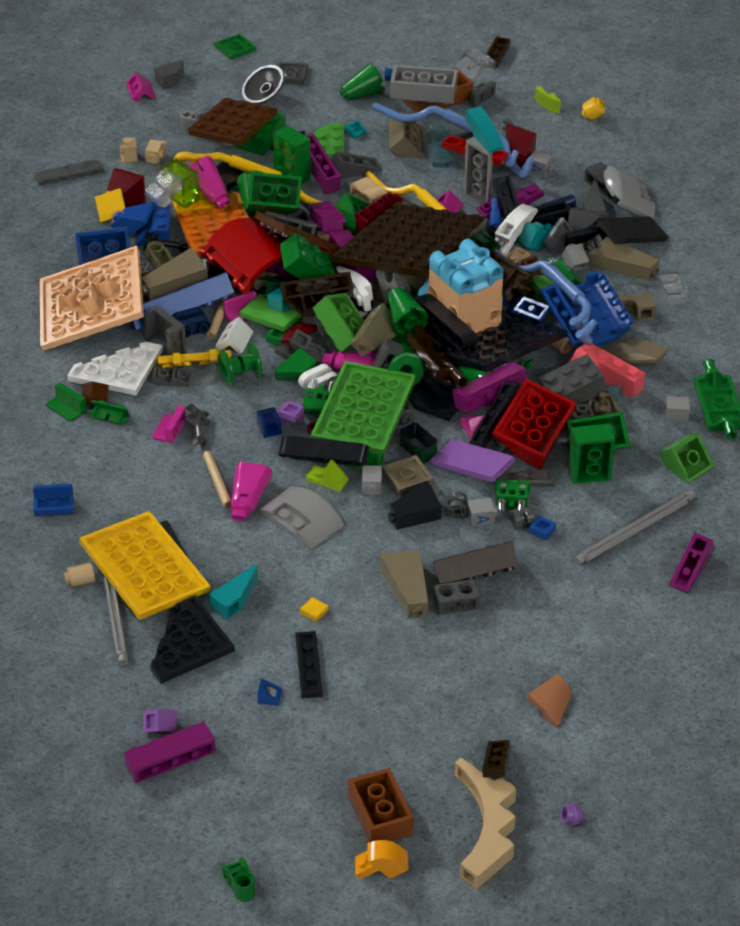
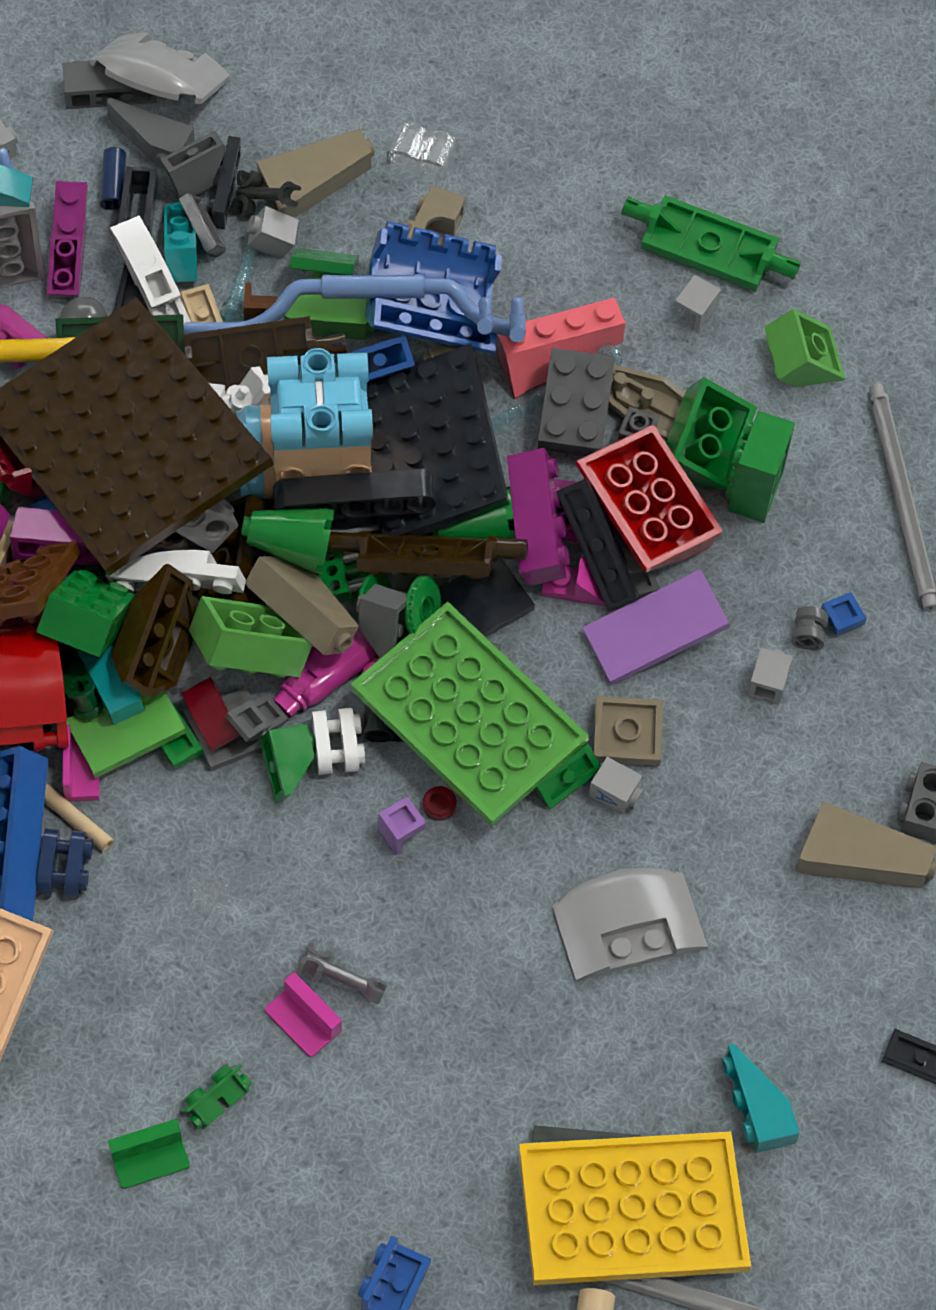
camera: 65 degrees left, 20 degrees up
(95, 391) = (157, 1097): reddish brown panel -> none
(123, 371) = (112, 1029): white plate -> none
(164, 377) = (179, 958): dark grey slope -> none
(166, 328) = (82, 906): dark grey panel -> none
(185, 360) = (154, 917): yellow hinge -> none
(189, 641) = (826, 1217): black plate -> none
(217, 479) = (474, 1005): tan piece -> none
(236, 335) = (136, 812): white panel -> none
(240, 364) = (234, 856): green hose -> none
(248, 487) = (531, 970): dark pink piece -> none
(269, 422) = (392, 864): clear blue brick -> none
(314, 609) = (843, 1007): yellow tile -> none
(319, 397) = (394, 764): green piece -> none
(324, 450) = (523, 823): black beam -> none
(329, 477) = (565, 845): lime slope -> none
(415, 507) = (709, 756): black slope -> none
(423, 436) = (572, 663): black piece -> none
(457, 505) = (739, 703): dark grey wheel -> none
(476, 562) = (888, 737): dark brown wedge -> none
(495, 216) = (95, 283): blue cone -> none
(505, 194) = (84, 243): black plate -> none
(511, 493) = (752, 612): green piece -> none
(536, 477) = (727, 567): flat silver tile -> none
(632, 229) = (261, 120): pearl dark grey tile -> none
(637, 351) = (539, 278): dark tan piece -> none

